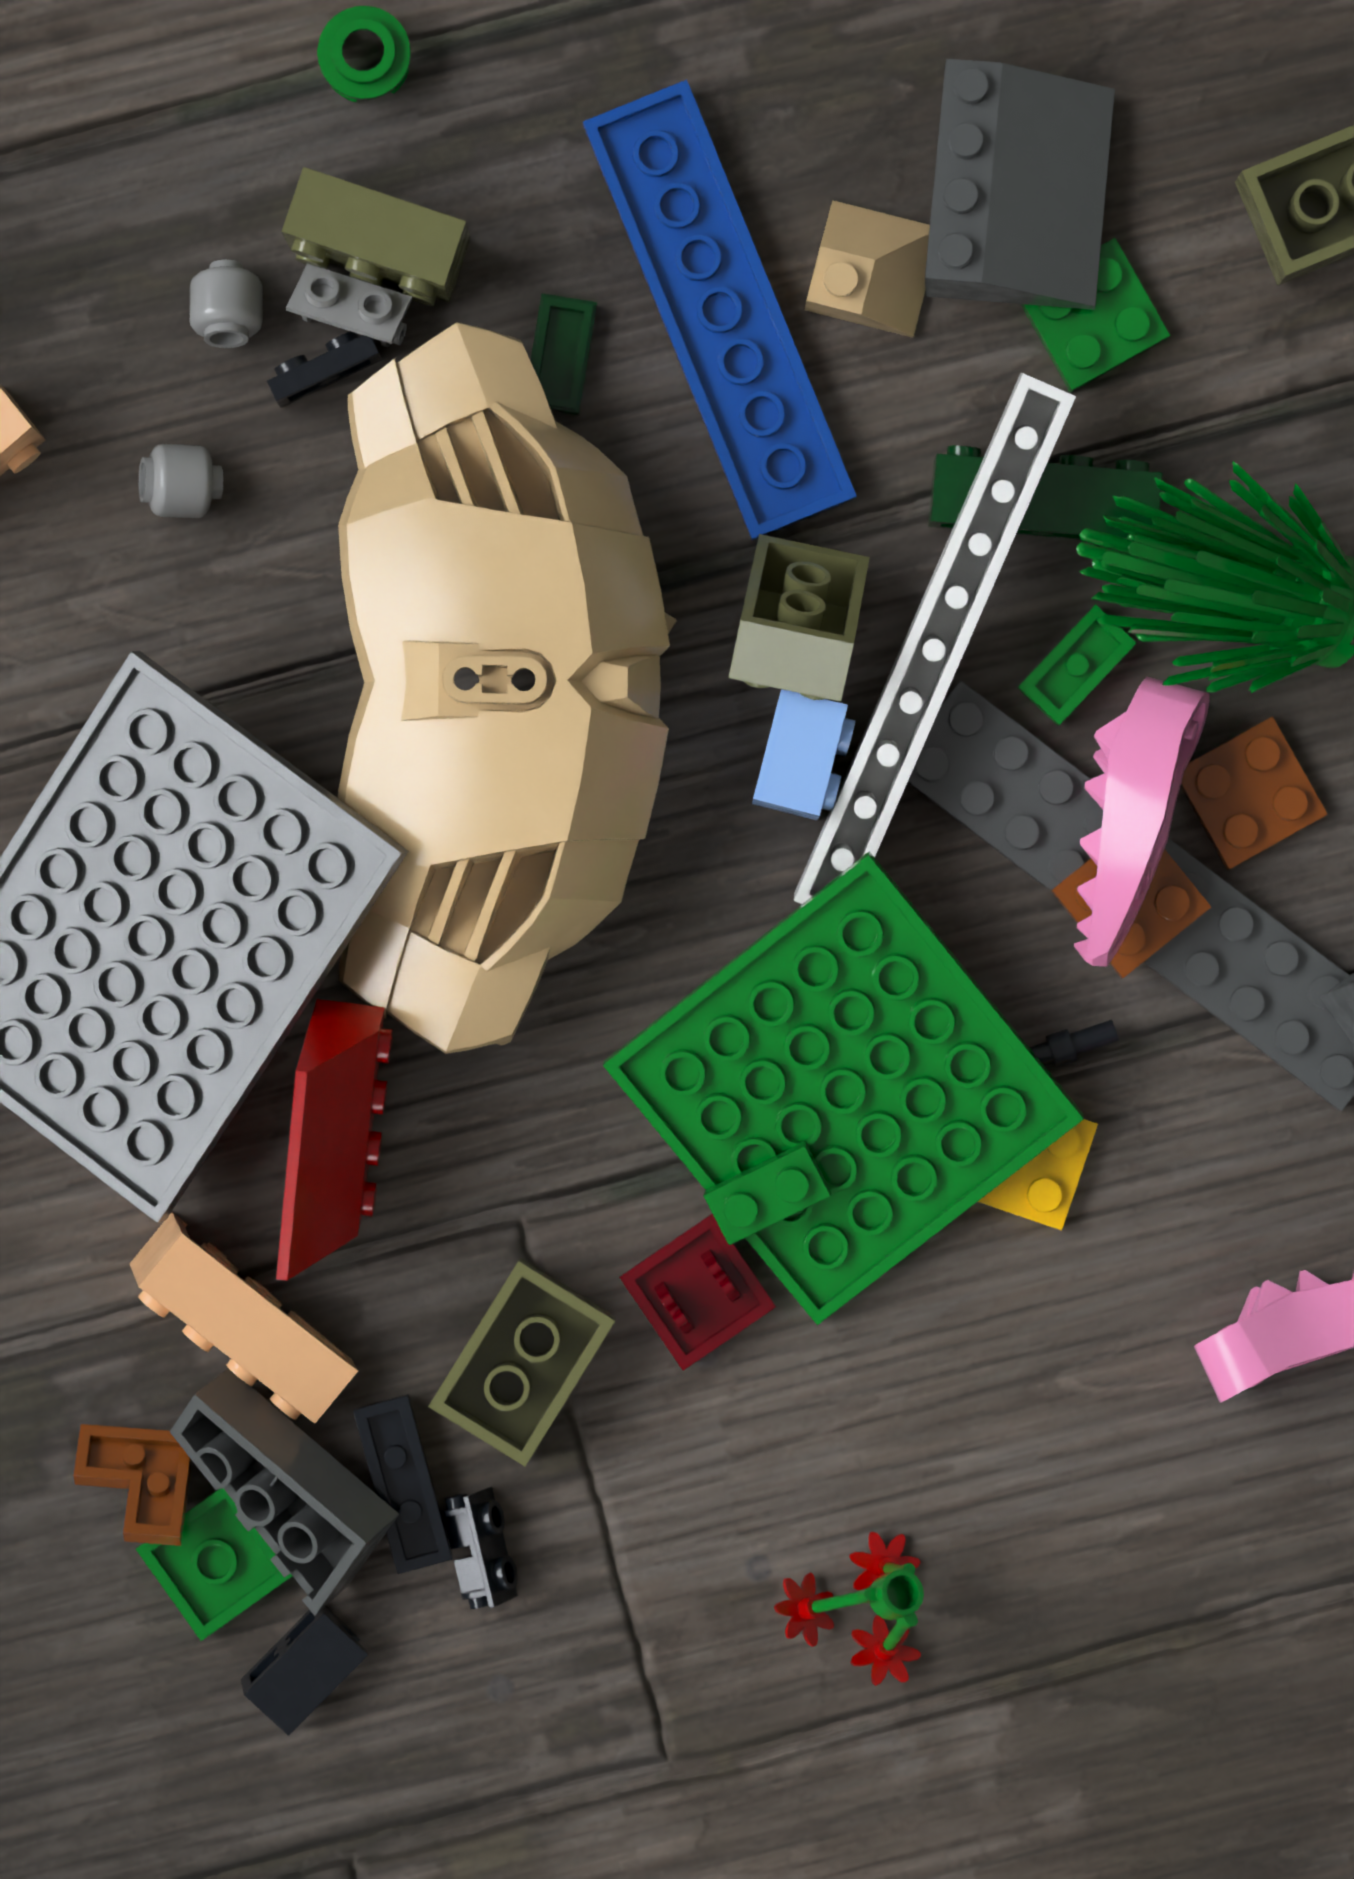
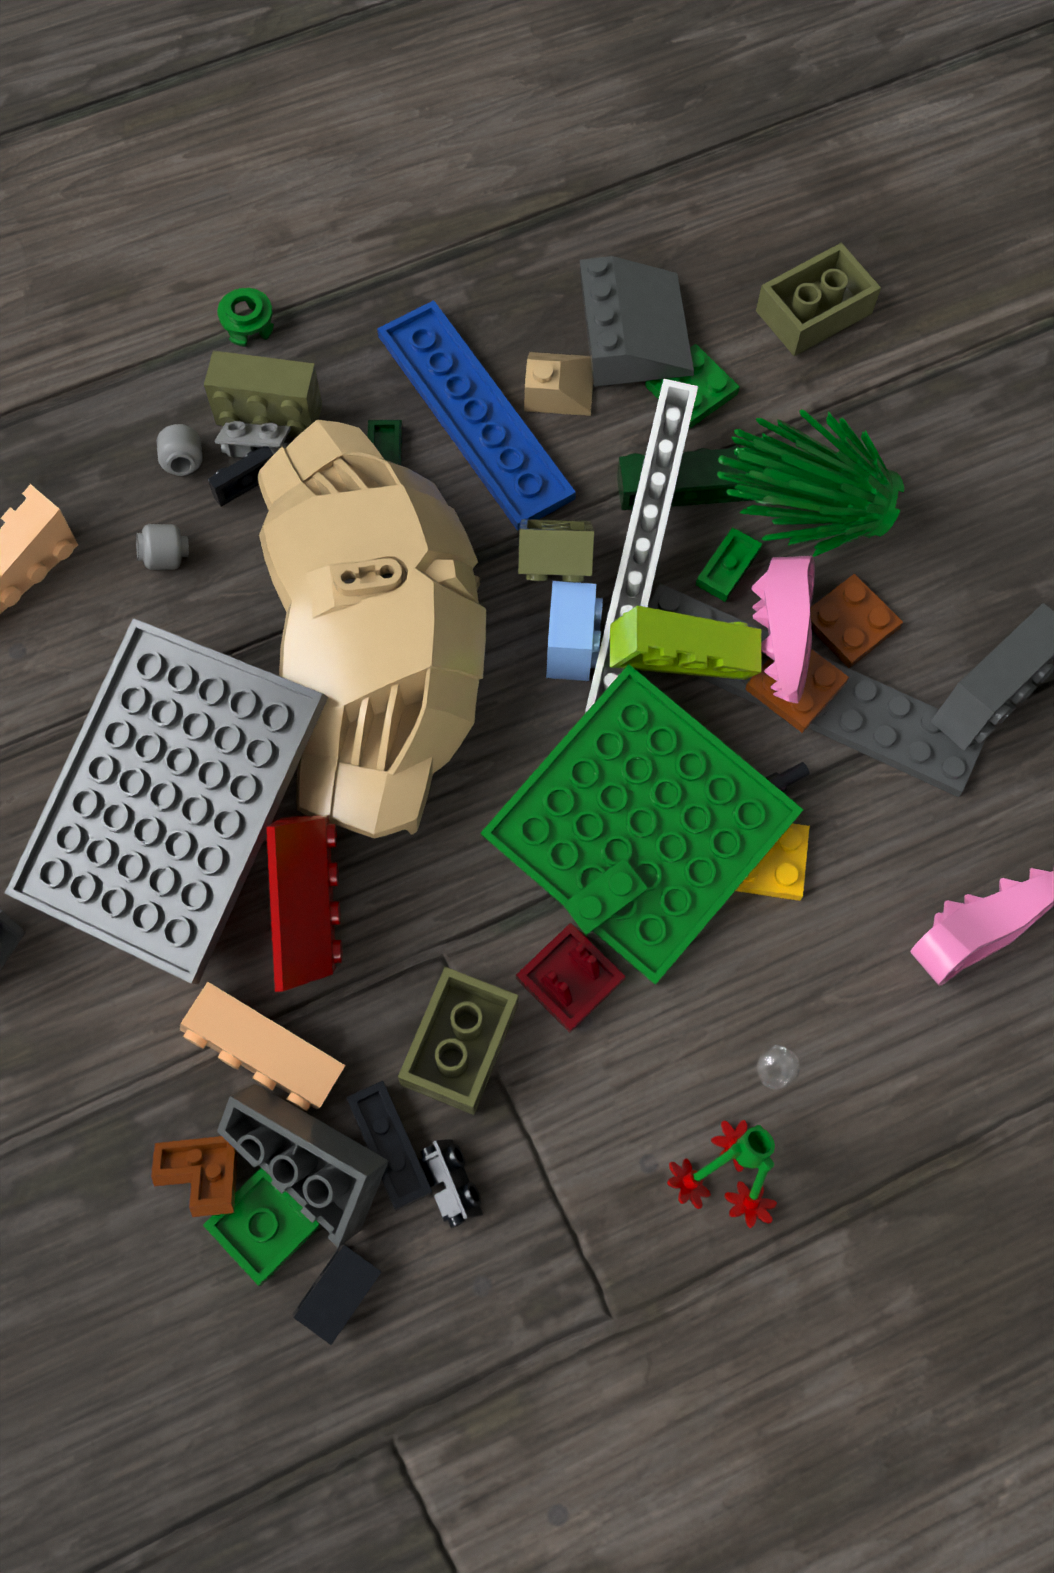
camera: 15 degrees left, 20 degrees down
(963, 831) = (684, 644): none -> lime wedge
(965, 1474) = (778, 1067): none -> clear piece

